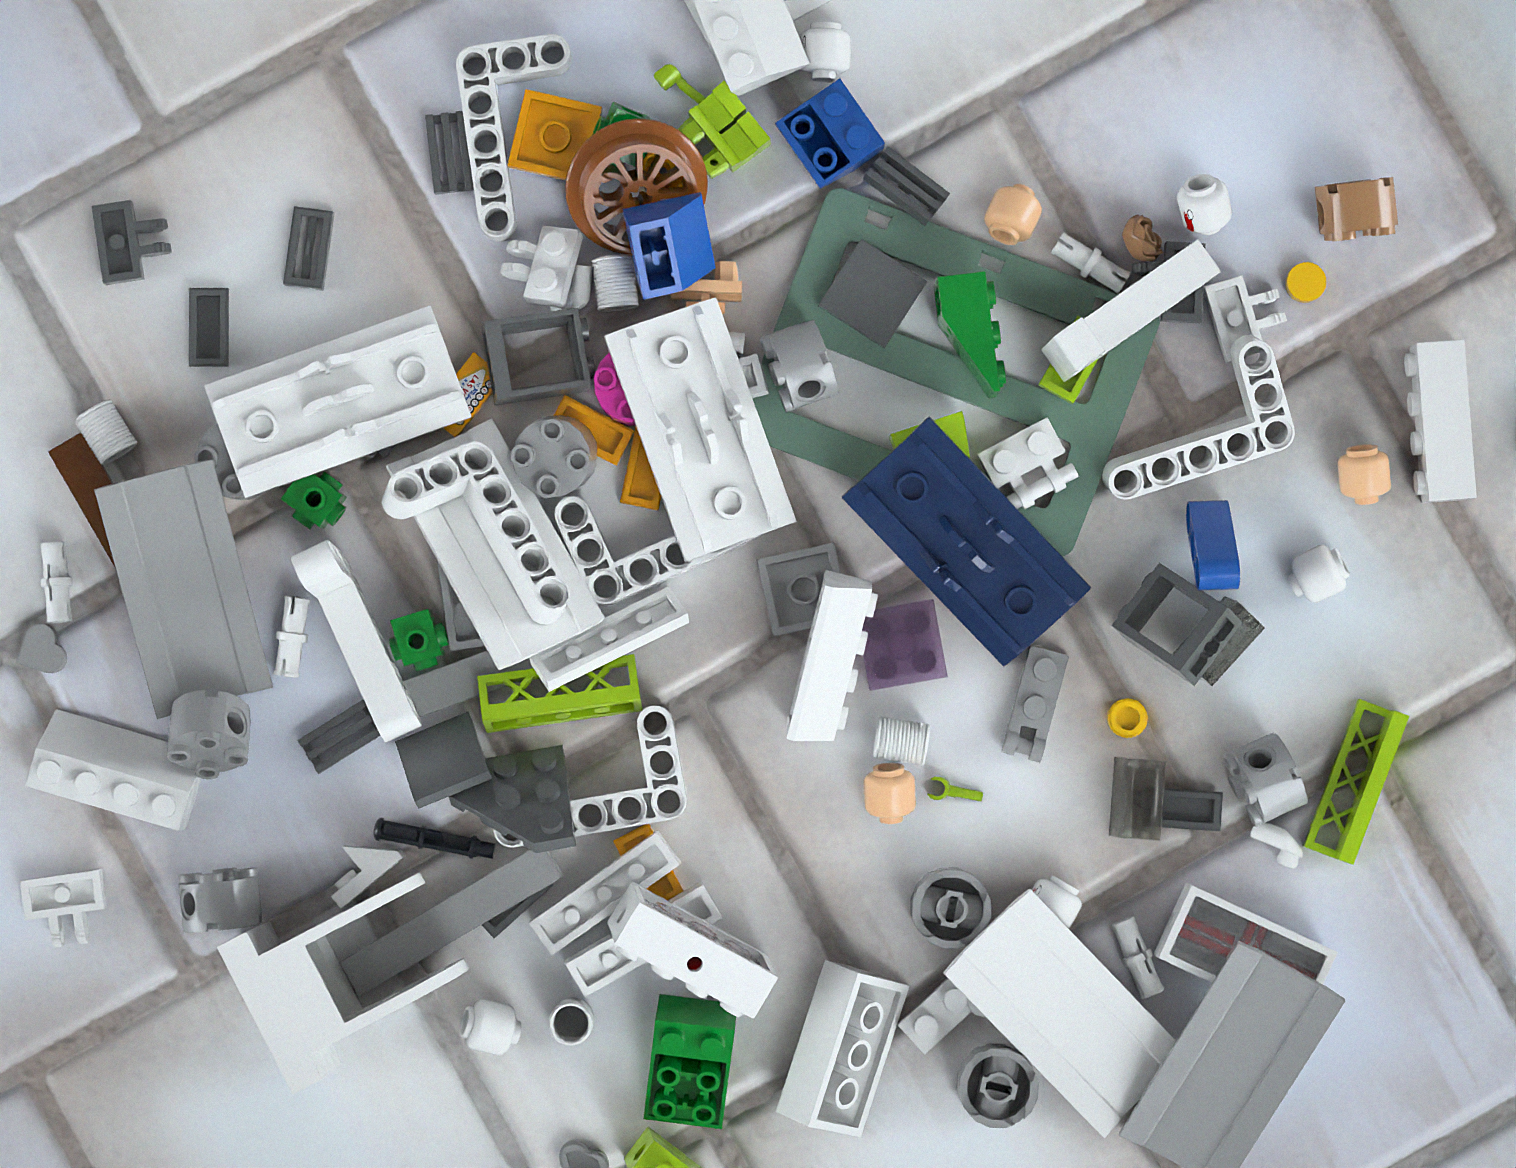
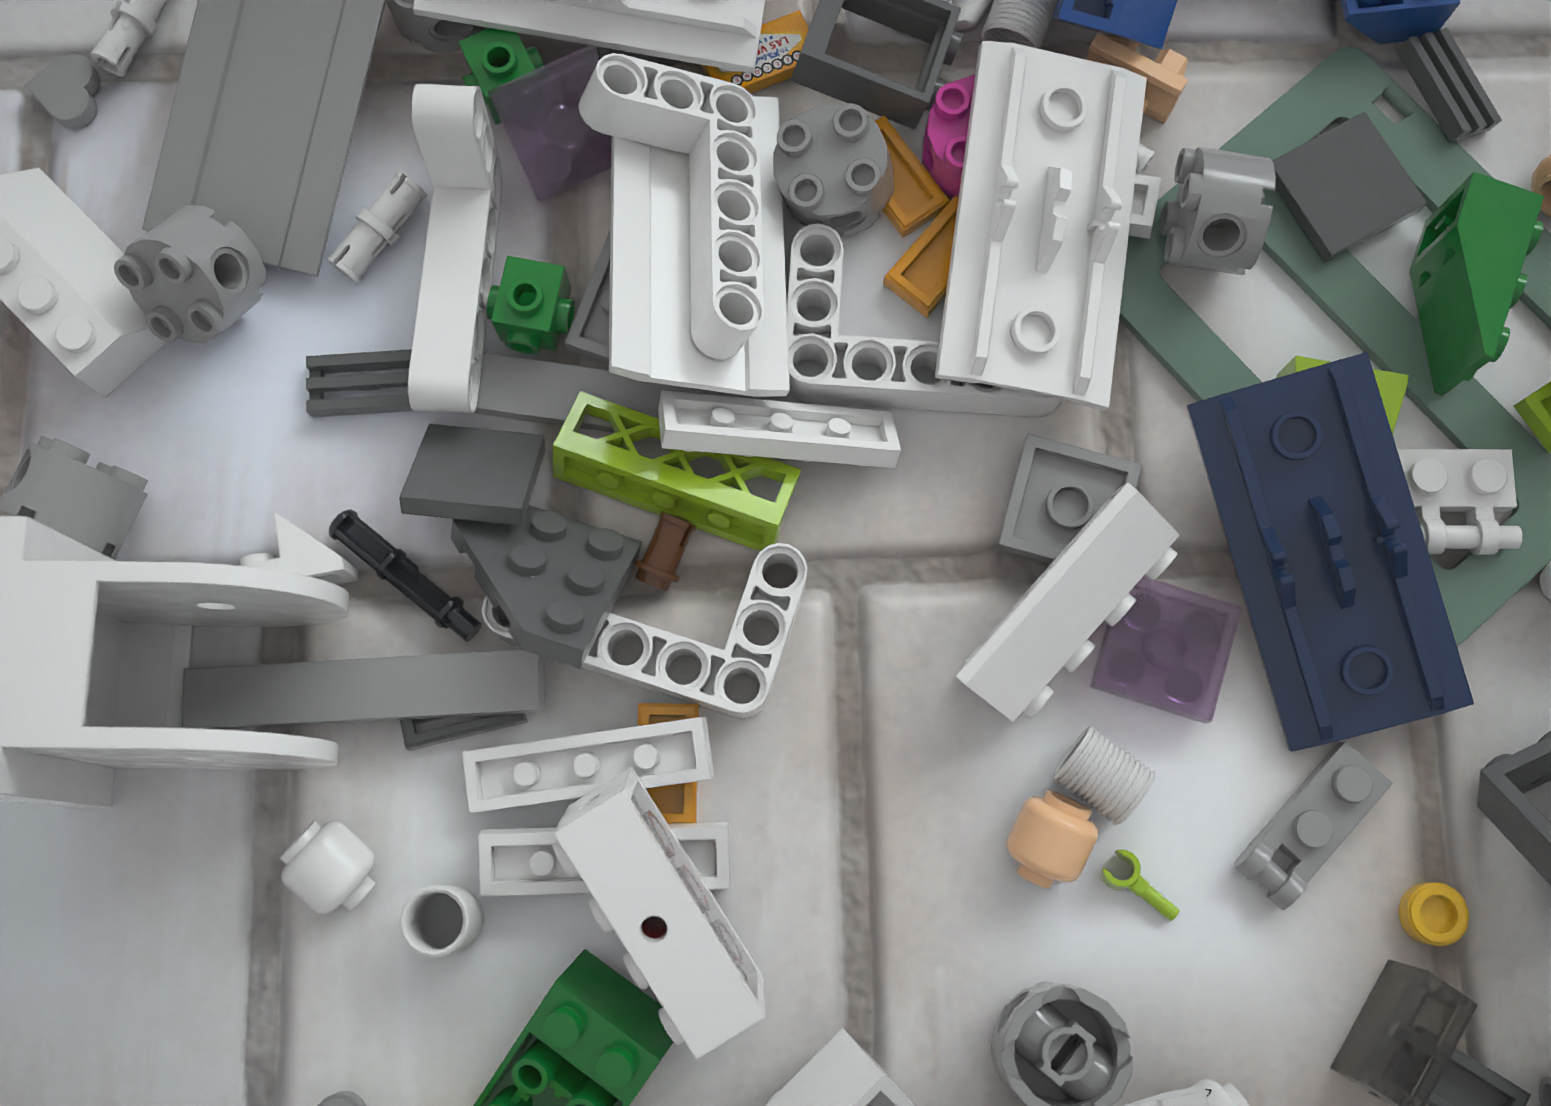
camera: 30 degrees right, 10 degrees down
(360, 517) = (546, 124): none -> clear purple plate
(580, 744) = (664, 551): none -> reddish brown pin

